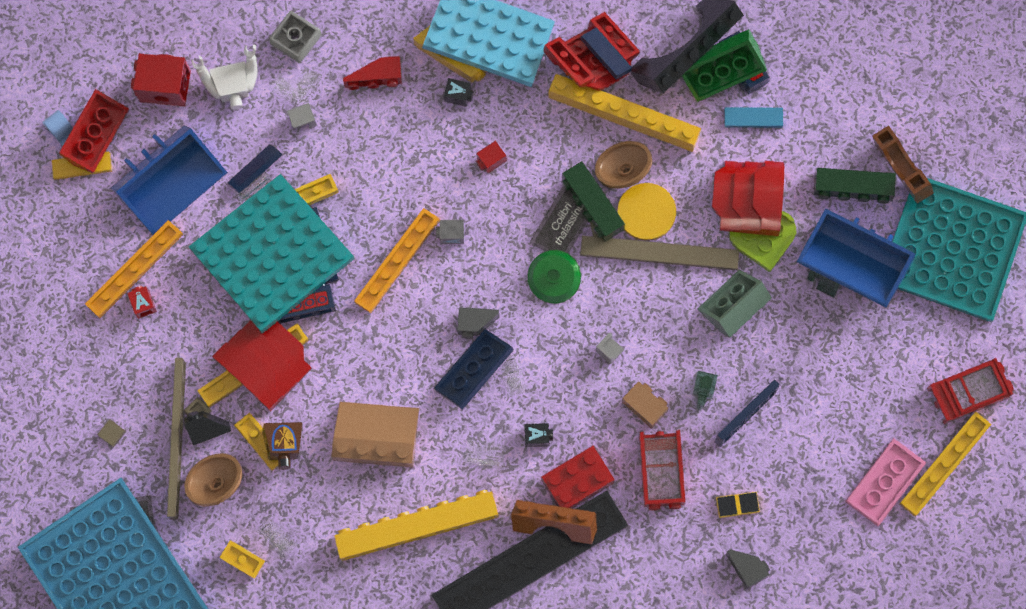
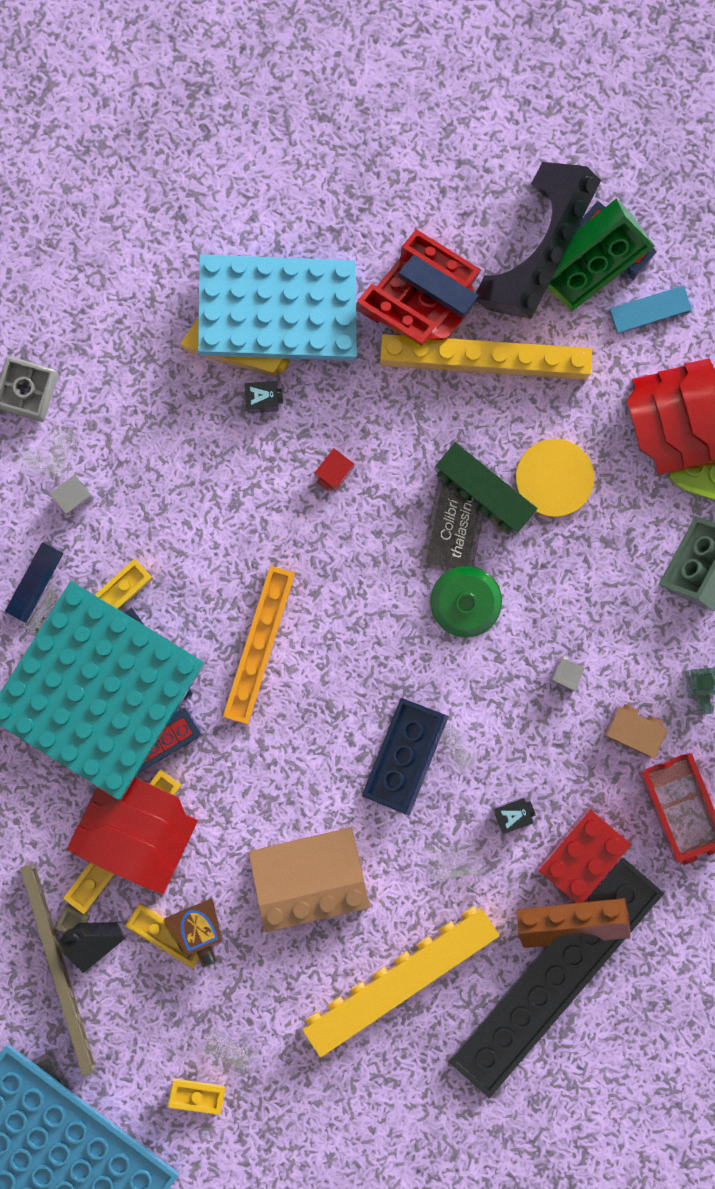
camera: 20 degrees left, 10 degrees up
(213, 480) = (113, 1005): medium nougat dish -> none
(379, 72) = (152, 401): red slope -> none
(450, 231) = (315, 585): flat silver brick -> none
(474, 320) = (385, 693): dark grey slope -> none
(623, 164) = (499, 419): medium nougat dish -> none
(660, 253) = (589, 526): dark tan tile -> none

